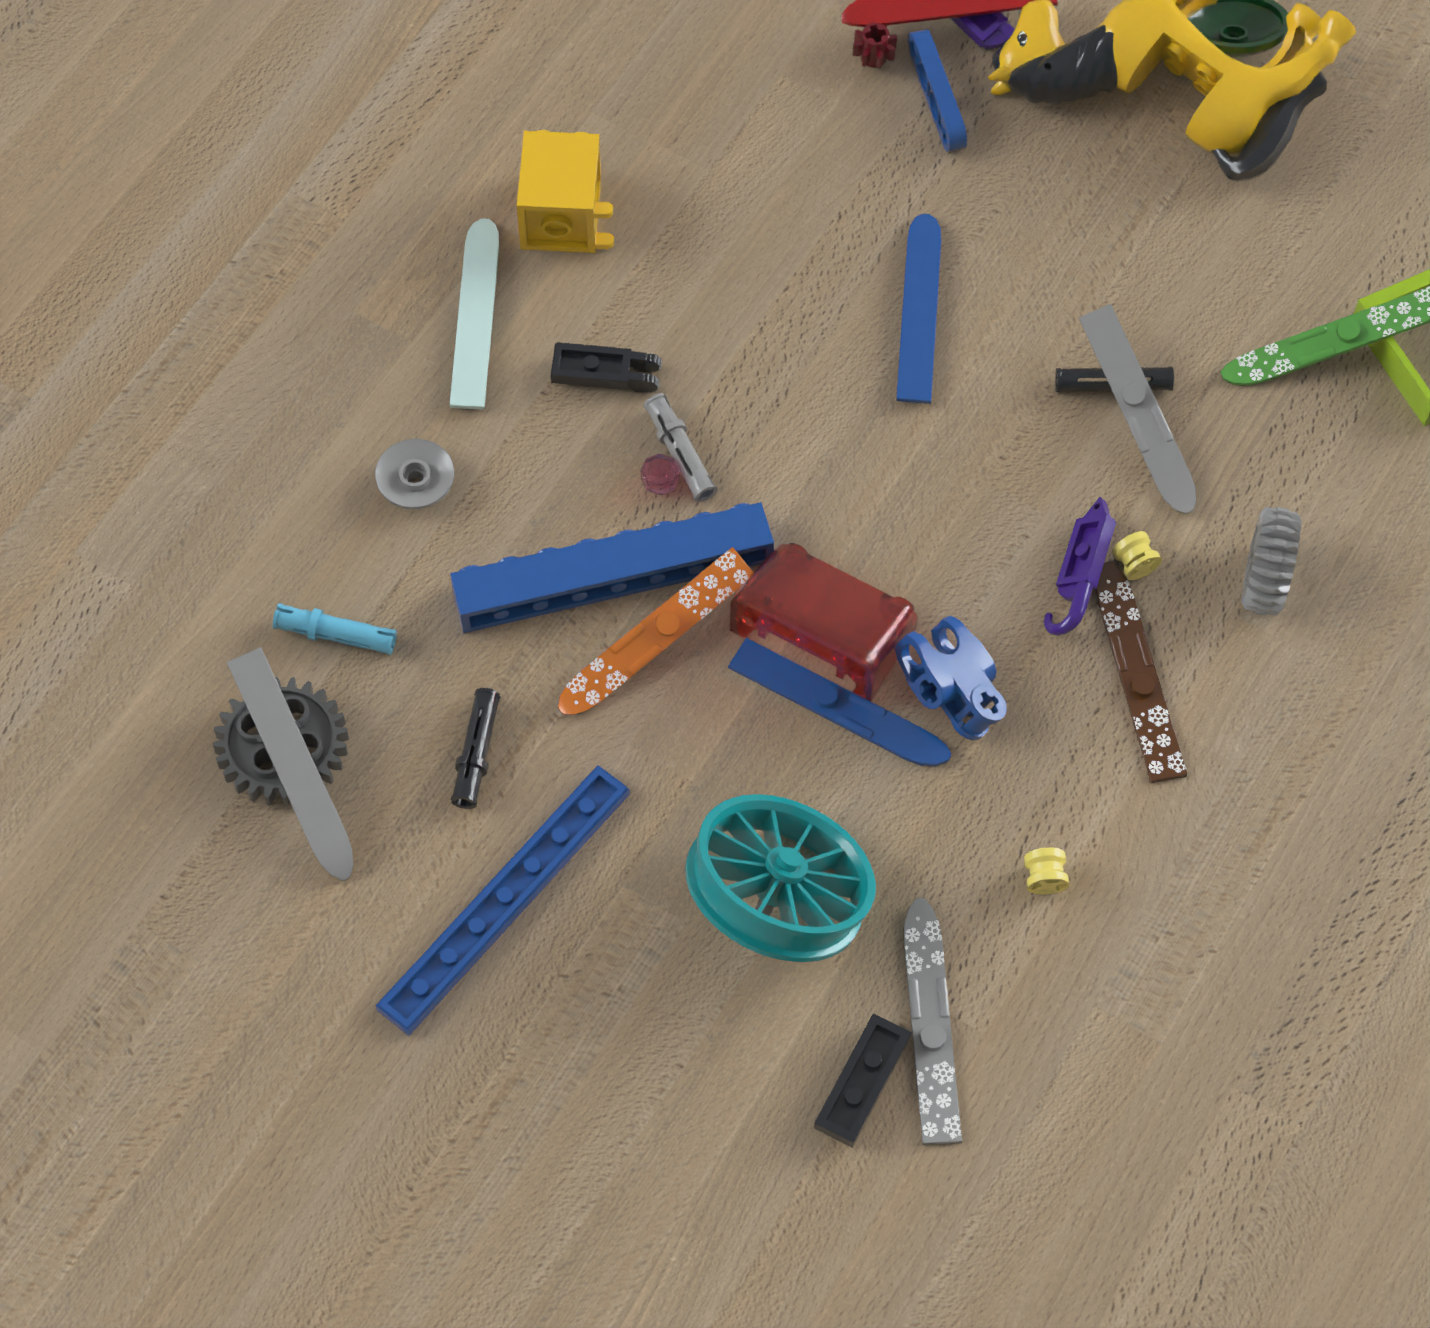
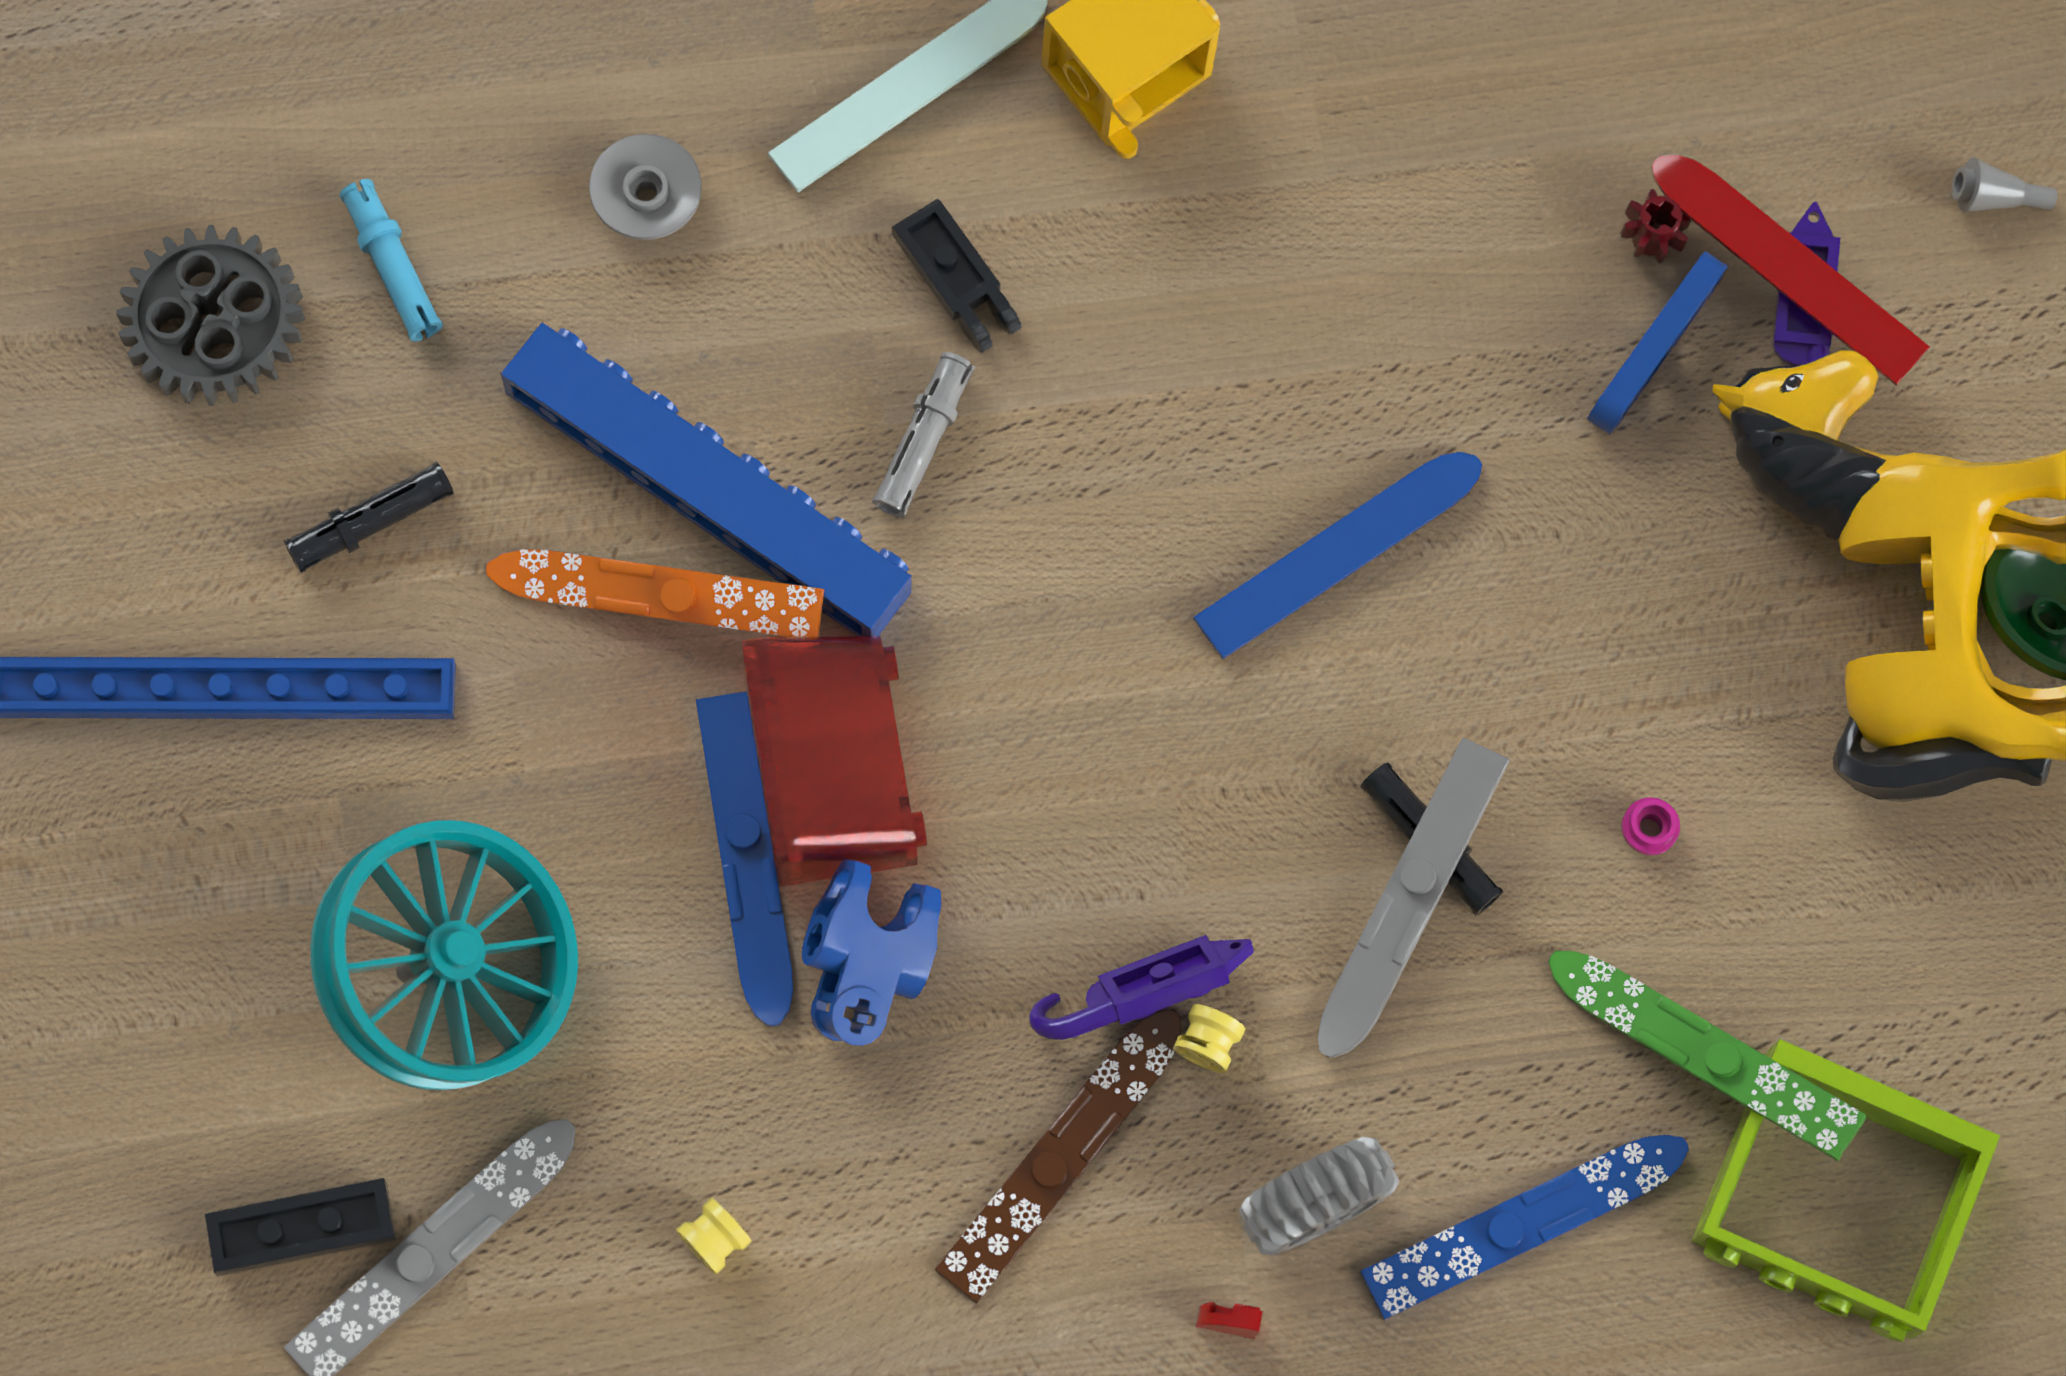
camera: 45 degrees right, 10 degrees up
(293, 762) = (180, 347): light grey piece -> none
(660, 474) = (870, 440): clear pink tile -> none
(1191, 272) = (1655, 810): none -> dark pink plate
(1298, 660) = (1239, 1321): none -> red tile
(1353, 492) = (1522, 1223): none -> blue piece

